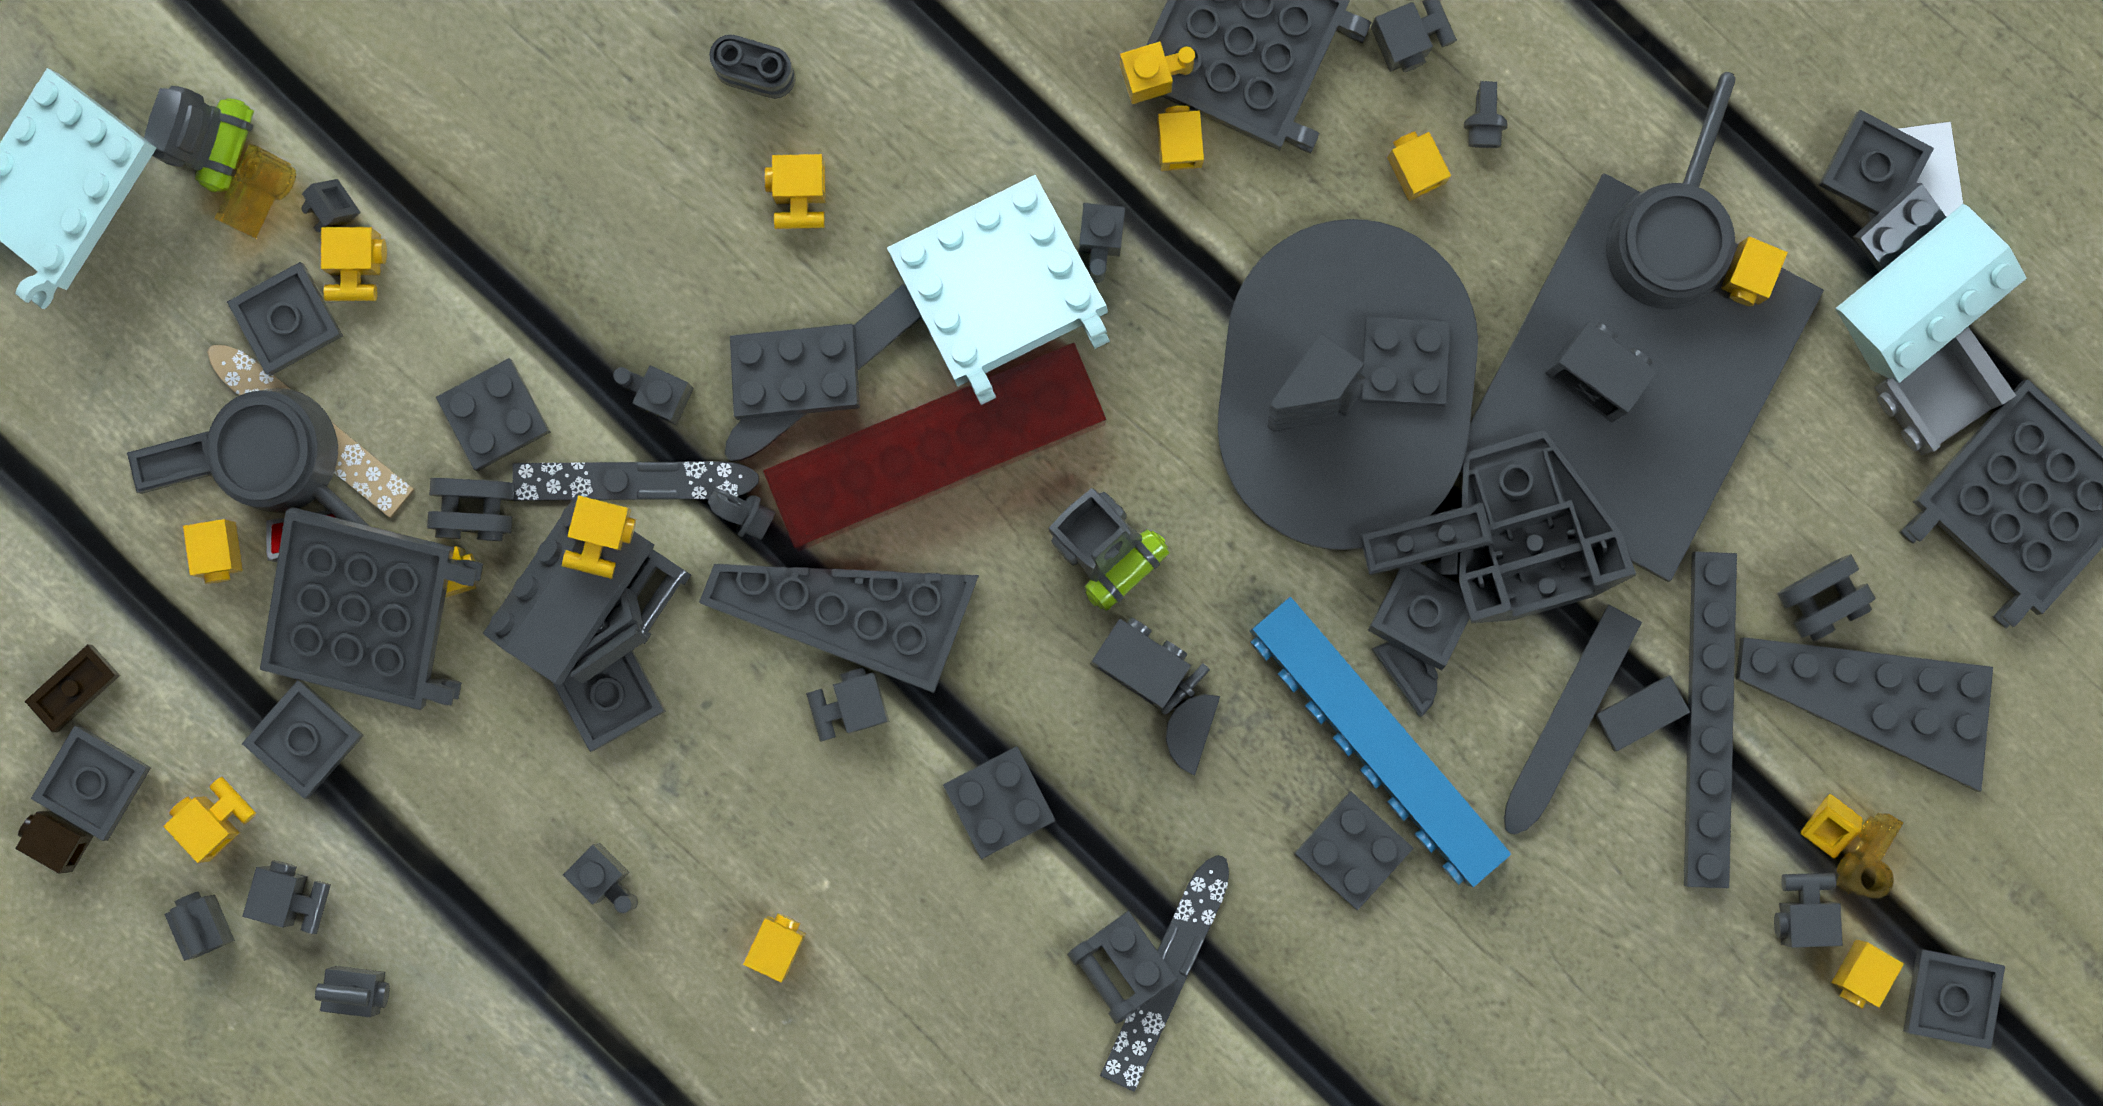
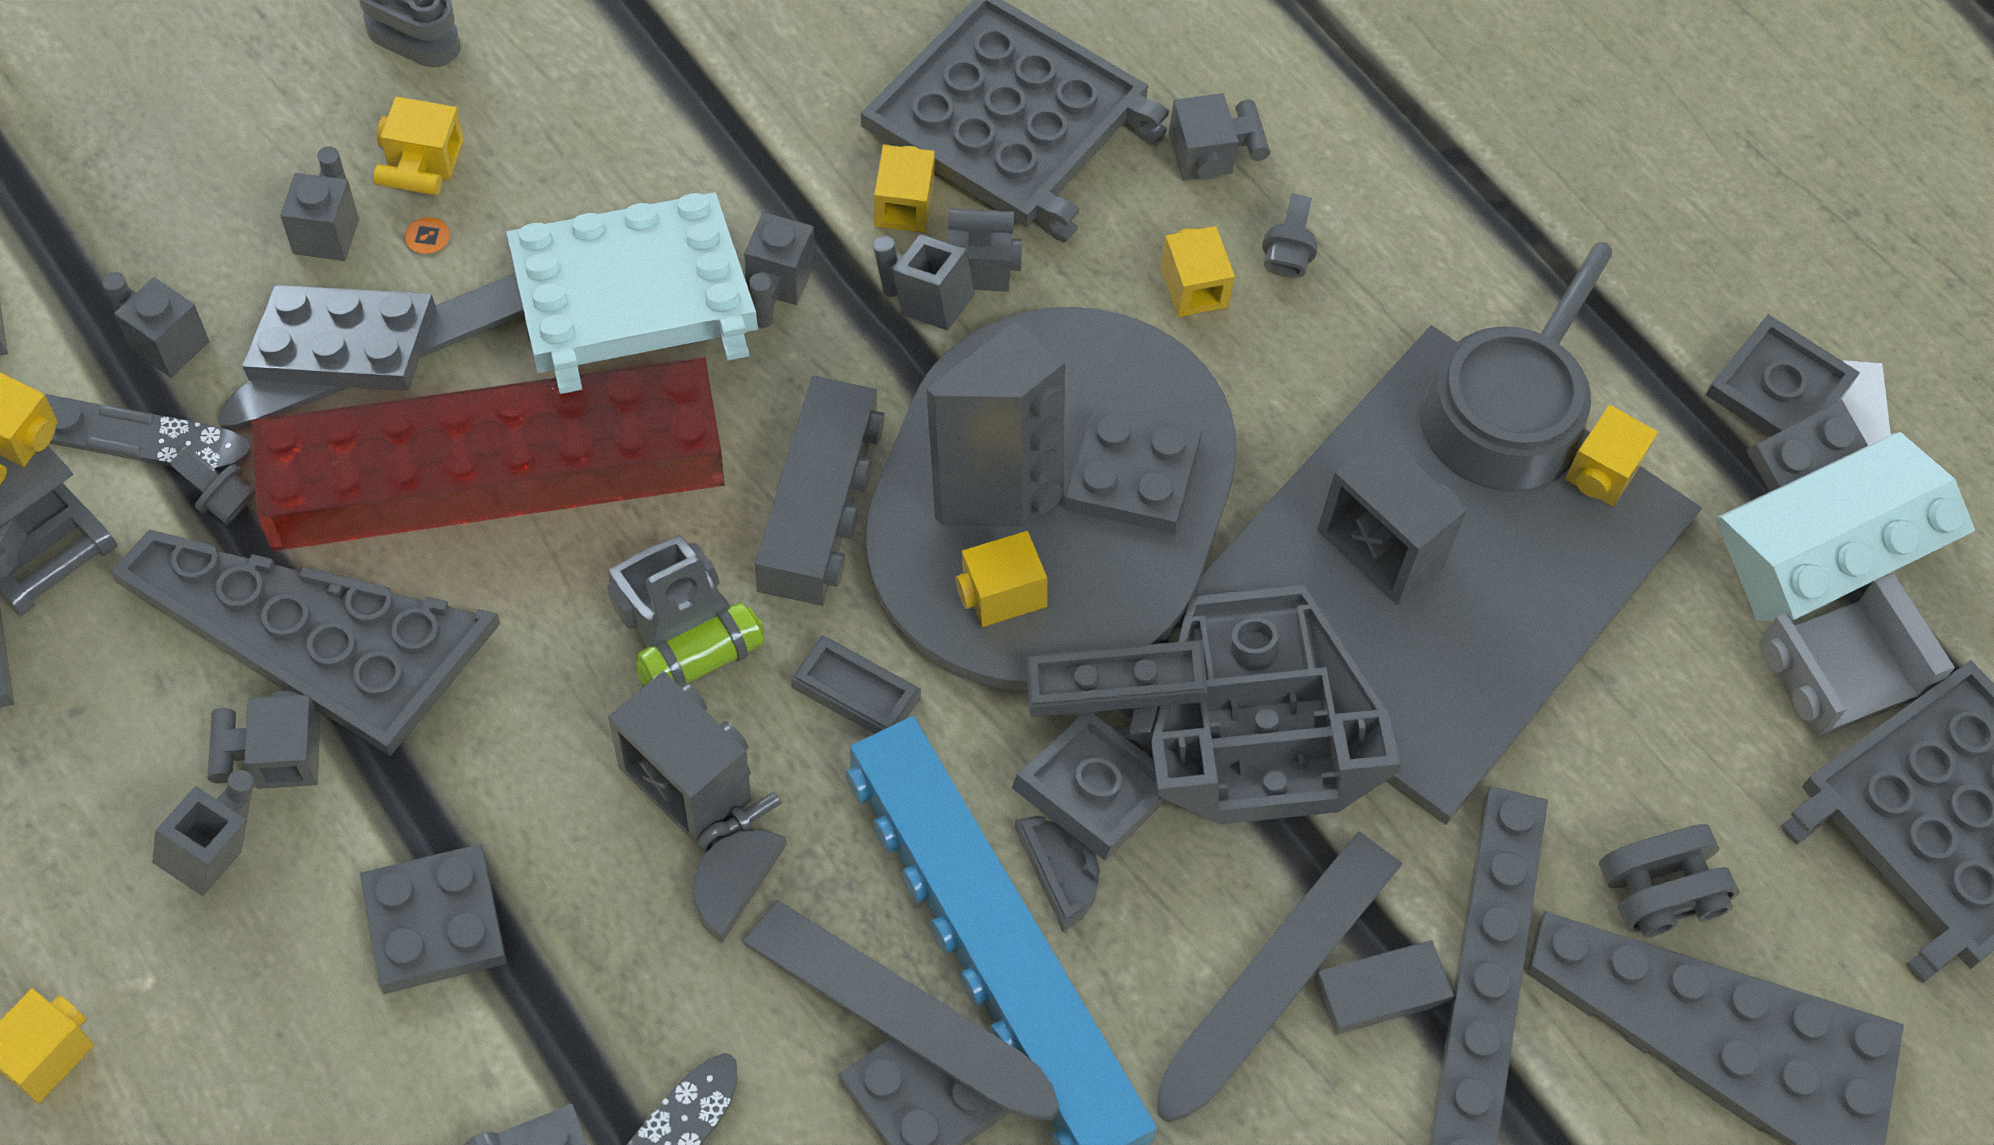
camera: 10 degrees right, 25 degrees down
(745, 265) = (321, 210): none -> dark grey brick
(824, 258) = (427, 235): none -> orange sticker
(835, 786) = (204, 833): none -> dark grey brick
(1150, 72) = (883, 95): yellow brick -> none
(1179, 422) = (818, 491): none -> dark grey brick
(1219, 229) = (928, 279): none -> dark grey brick
(1240, 570) = (855, 686): none -> dark grey tile
(1252, 186) = (988, 245): none -> dark grey brick
(1326, 805) = (904, 1013): none -> dark grey piece
(1330, 478) = (1002, 579): none -> yellow brick

